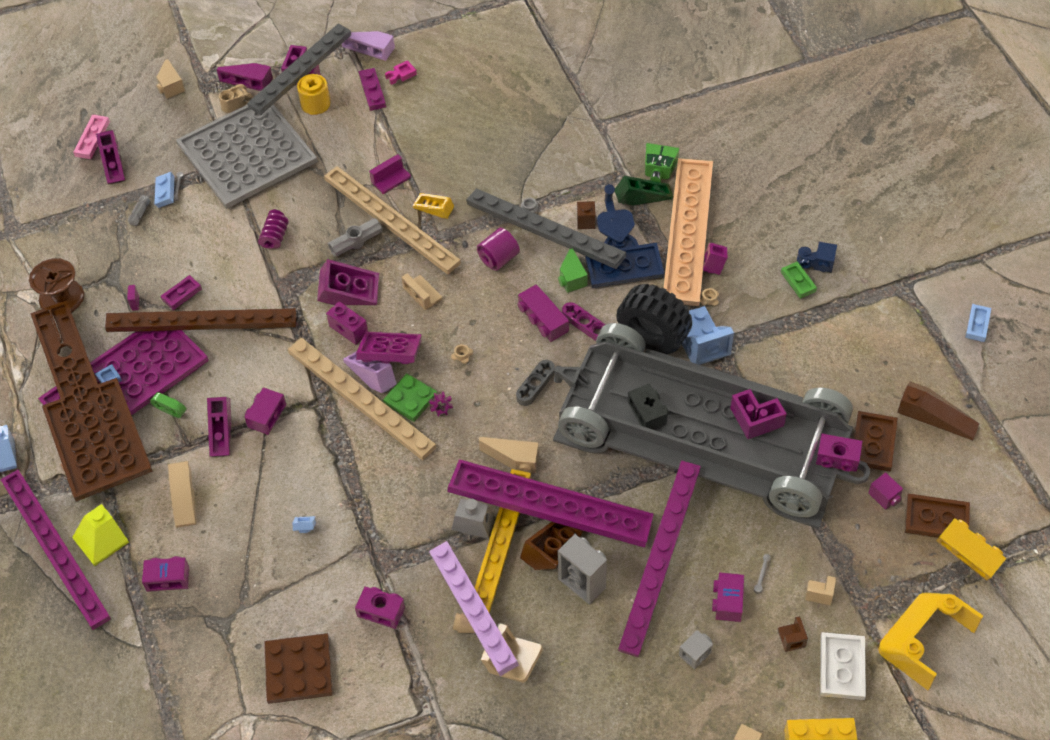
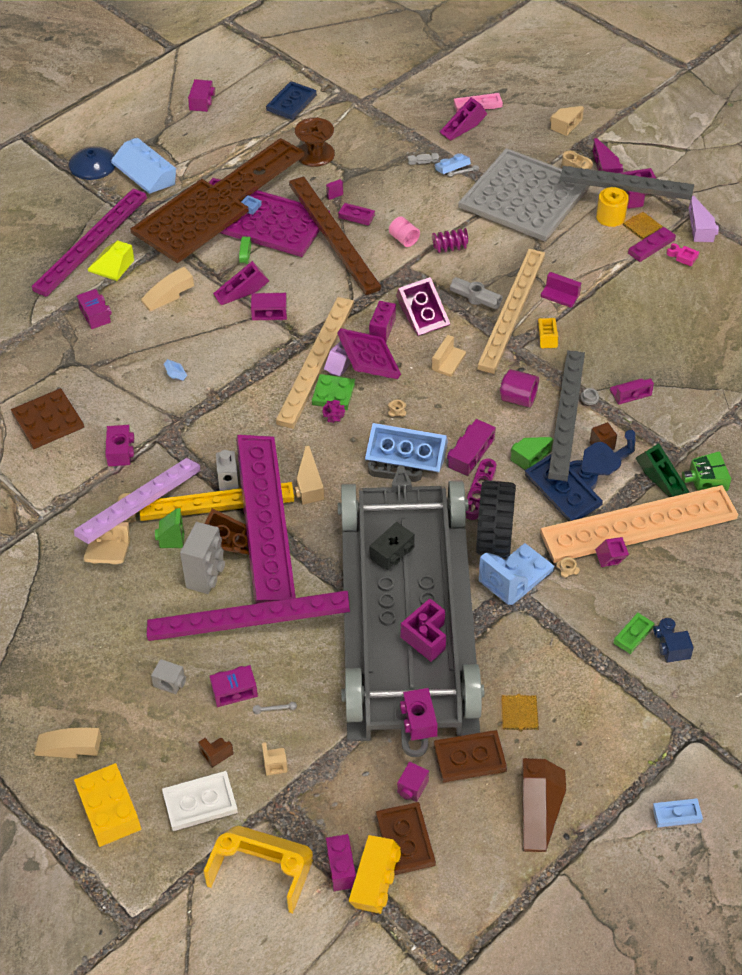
camera: 65 degrees right, 5 degrees down
(236, 261) = (404, 231): none -> bright pink wheel
(343, 86) = (642, 225): none -> clear yellow piece
(522, 362) = (406, 447): none -> light blue slope
(523, 590) = (171, 530): none -> bright green slope
(537, 175) = (632, 390): none -> magenta panel
(846, 386) = (519, 712): none -> clear yellow piece
(947, 572) = (340, 862): none -> magenta brick

